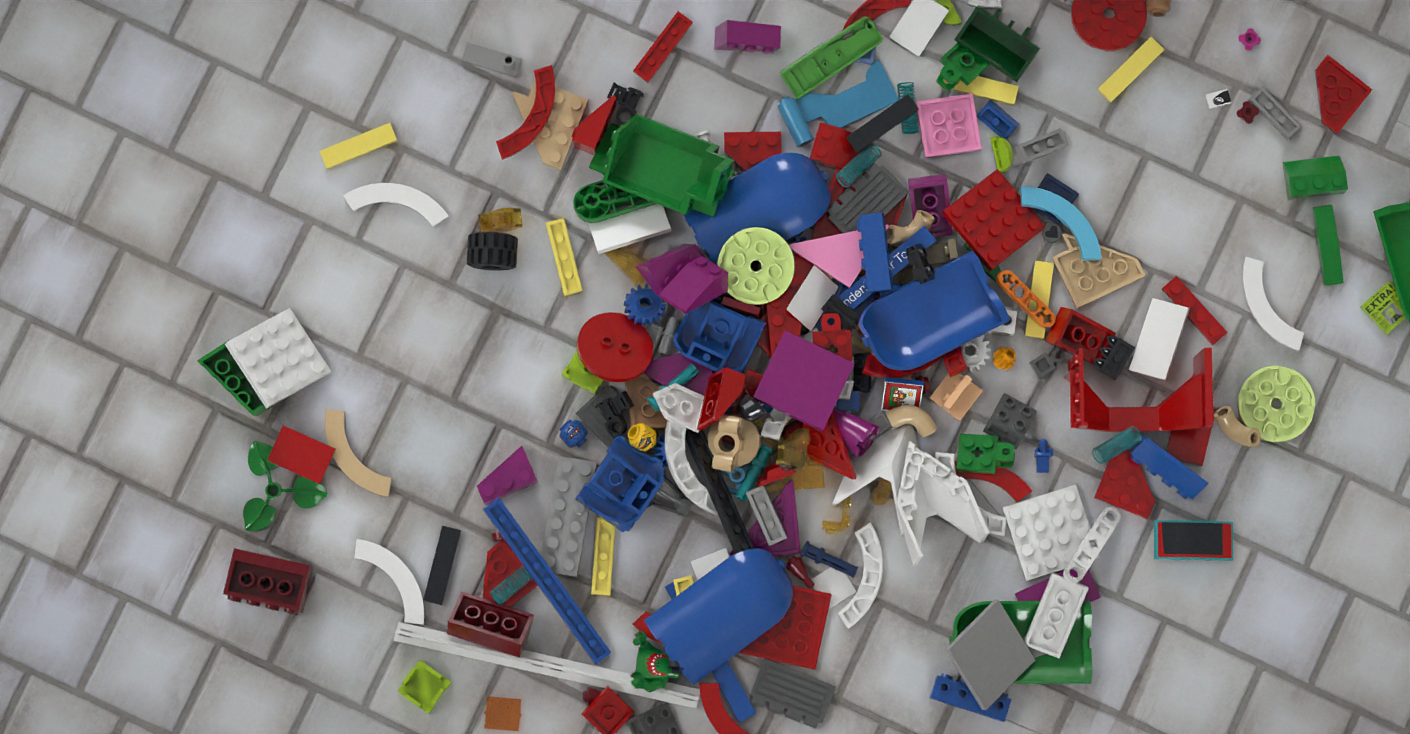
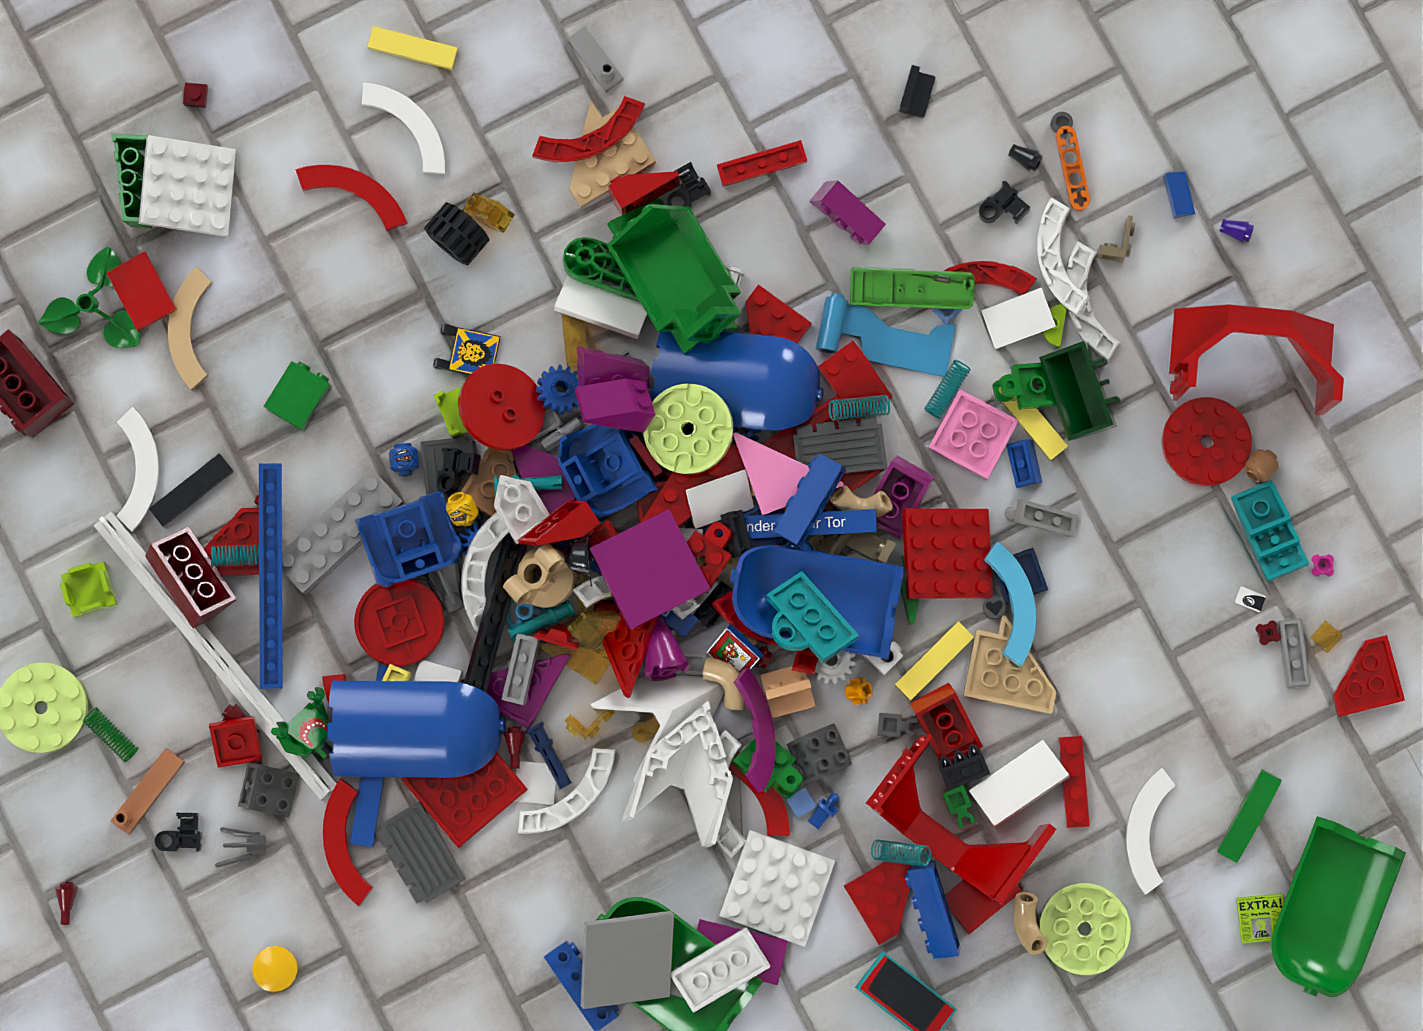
camera: 40 degrees right, 0 degrees up
(231, 291) = (195, 95): none -> dark red plate
(392, 269) = (356, 183): none -> red tile
(466, 444) = (297, 395): none -> green panel
(502, 713) = (141, 669): clear orange piece -> none
(508, 478) = (312, 454): magenta wedge -> none
(561, 325) = (469, 351): none -> flag
(564, 257) = (521, 290): light yellow tile -> none
(603, 558) = (342, 596): light yellow tile -> none
(657, 547) = (399, 622): none -> red plate
(882, 123) = (910, 385): black tile -> none
(924, 270) = (843, 552): black hinge -> none
(937, 333) = (809, 619): none -> teal plate
(976, 450) = (763, 729): none -> magenta tile
(1002, 152) = (1004, 497): lime plate -> none
(1023, 463) = (801, 802): none -> medium blue tile
(1027, 296) = (923, 649): orange beam -> none
(1085, 555) = (791, 935): white piece -> none
(1128, 383) = (958, 802): none -> green plate
(1130, 69) = (1187, 509): light yellow tile -> none
(1196, 42) = (1269, 530): none -> teal slope
(1287, 85) = (1326, 636): none -> clear yellow tile
(1315, 177) = (1286, 742): green slope -> none

